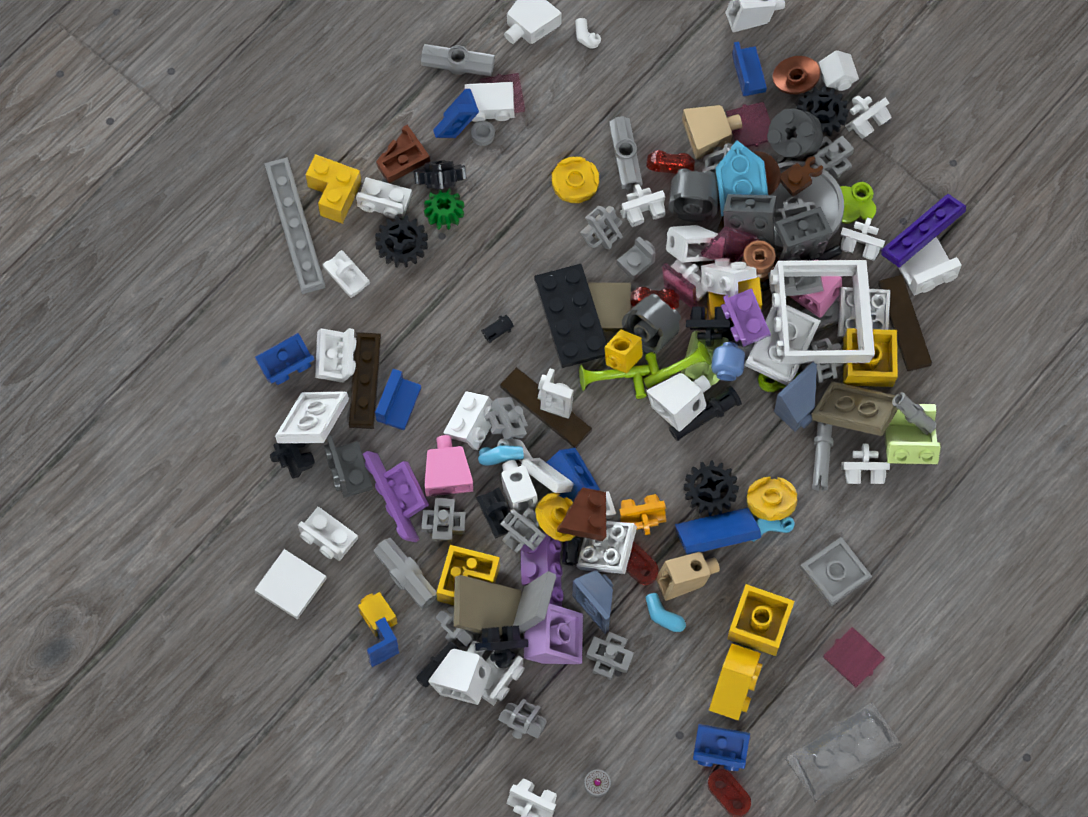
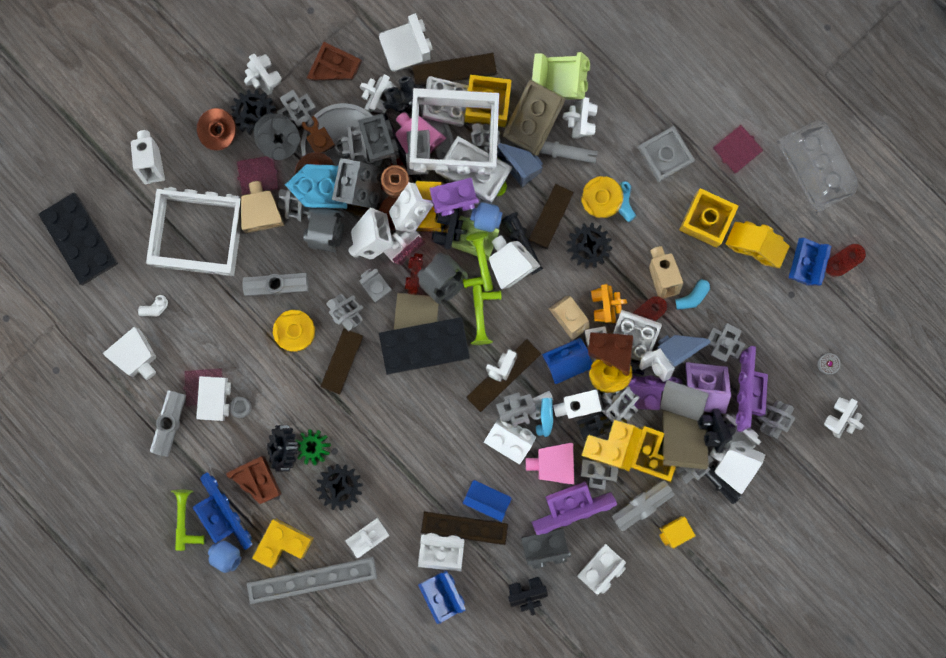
camera: 85 degrees left, 15 degrees up
(290, 584) = (644, 603): white tile -> none
(312, 417) = (504, 576): white tile -> none
(315, 131) = (224, 556): none -> medium blue head
(331, 88) = (181, 537): none -> lime piece
(359, 118) = (218, 516): none -> blue bracket
(383, 198) = (294, 499): white bracket -> none
(386, 648) = (708, 524): blue panel -> none
(457, 116) = (225, 427): blue panel -> none
(470, 527) = (619, 448): none -> yellow brick
(497, 328) = (428, 410): black pin -> none
(545, 232) = (341, 361): none -> dark brown tile
(547, 475) = (569, 380): white tile -> none
(553, 688) = (752, 390): none -> medium lavender bracket
(579, 566) = (659, 362): none -> white bracket
(623, 351) = (455, 305): yellow brick -> none
(623, 470) = (570, 317): none -> tan torso
(642, 201) = (326, 264): white hips -> none
(669, 163) = (289, 238): clear red plate -> none
(675, 27) = (191, 196): none -> white window
(718, 531) = (630, 243): blue tile -> none
(728, 244) = (380, 203): clear pink piece -> none
(742, 445) = (551, 216): none -> dark brown tile
(748, 70) = (205, 170): blue panel -> none
(838, 70) = (217, 92): white brick -> none
(857, 206) = (344, 93): lime plate -> none
(874, 269) = (401, 99): none -> black hips
(891, 190) = (333, 64): none -> copper wing
(914, 413) = (545, 70): light grey pin -> none
(923, 230) = (374, 42): dark purple tile -> none

